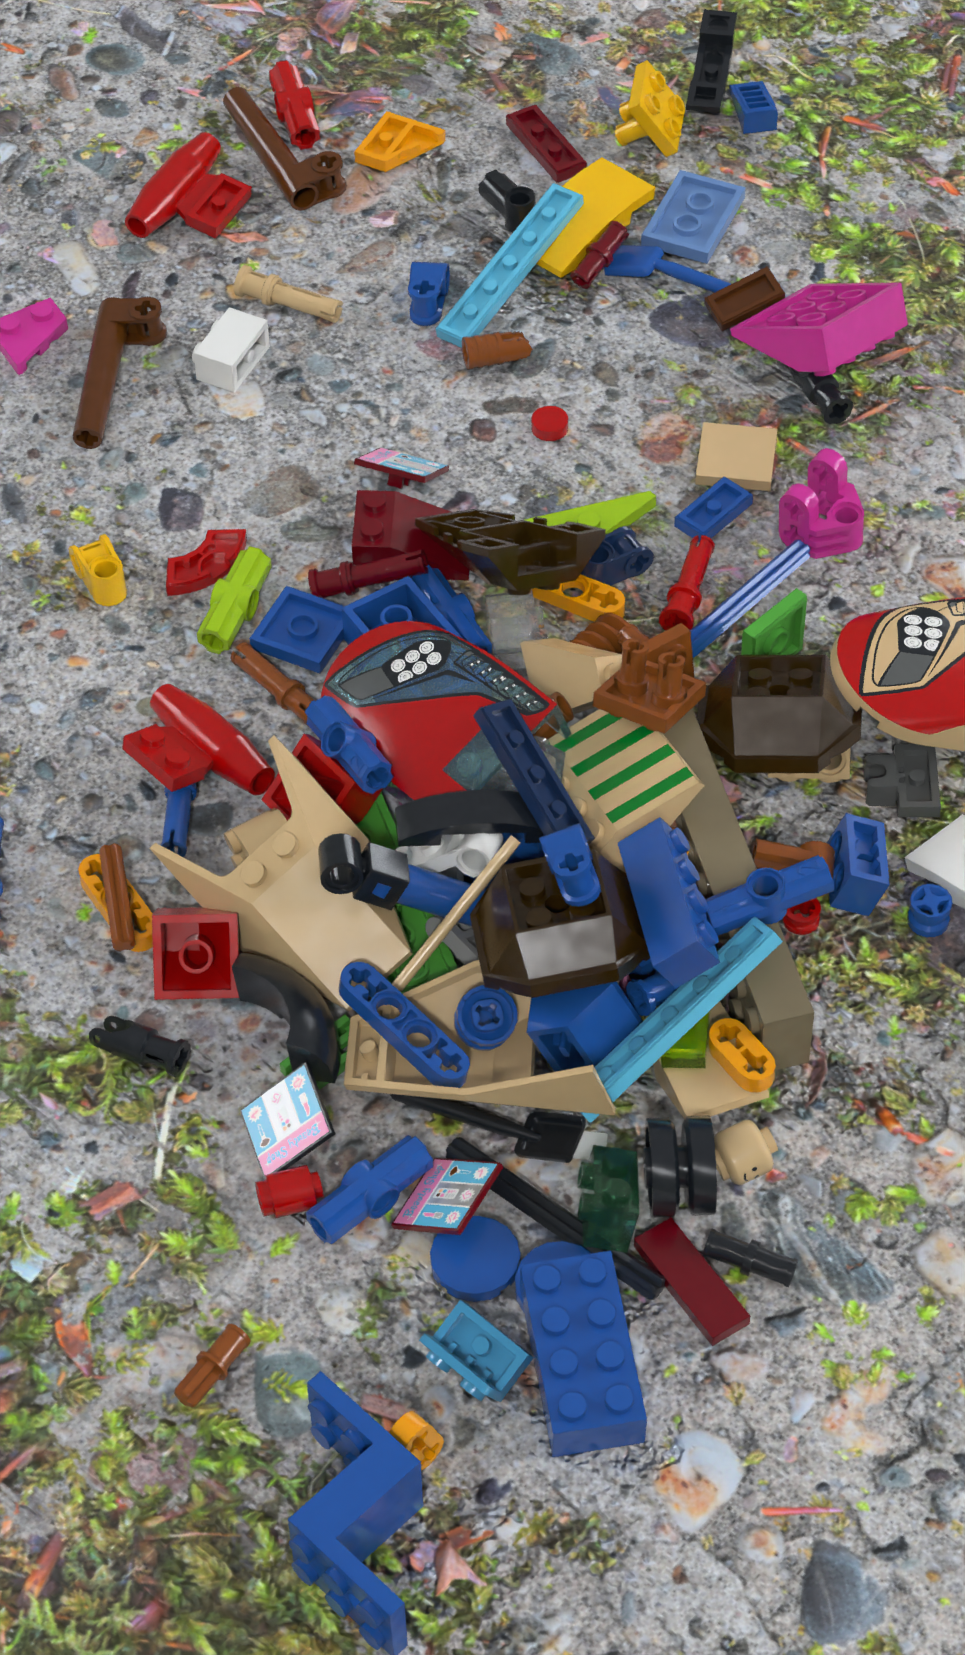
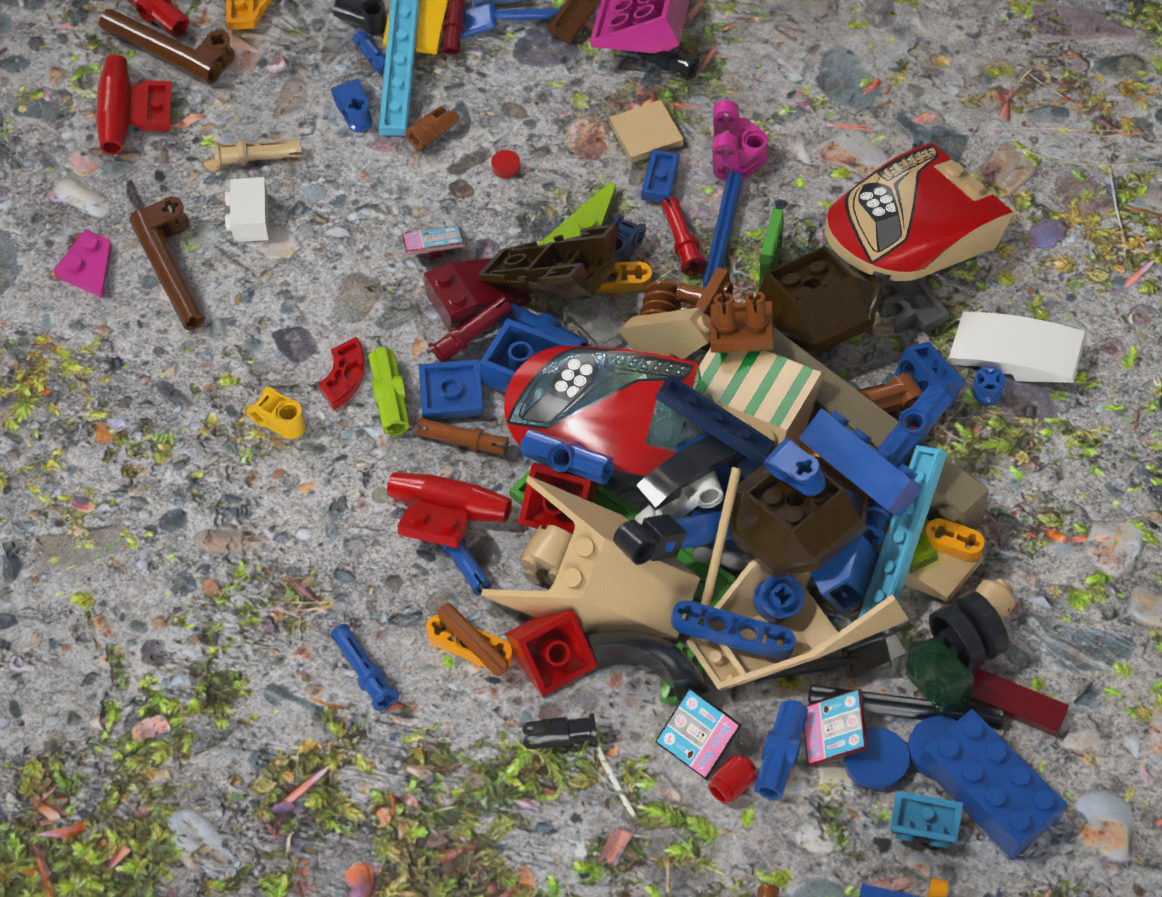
camera: 30 degrees left, 5 degrees up
(489, 240) = (370, 51): none -> blue axle
(750, 1257) = (1042, 668): black pin -> none

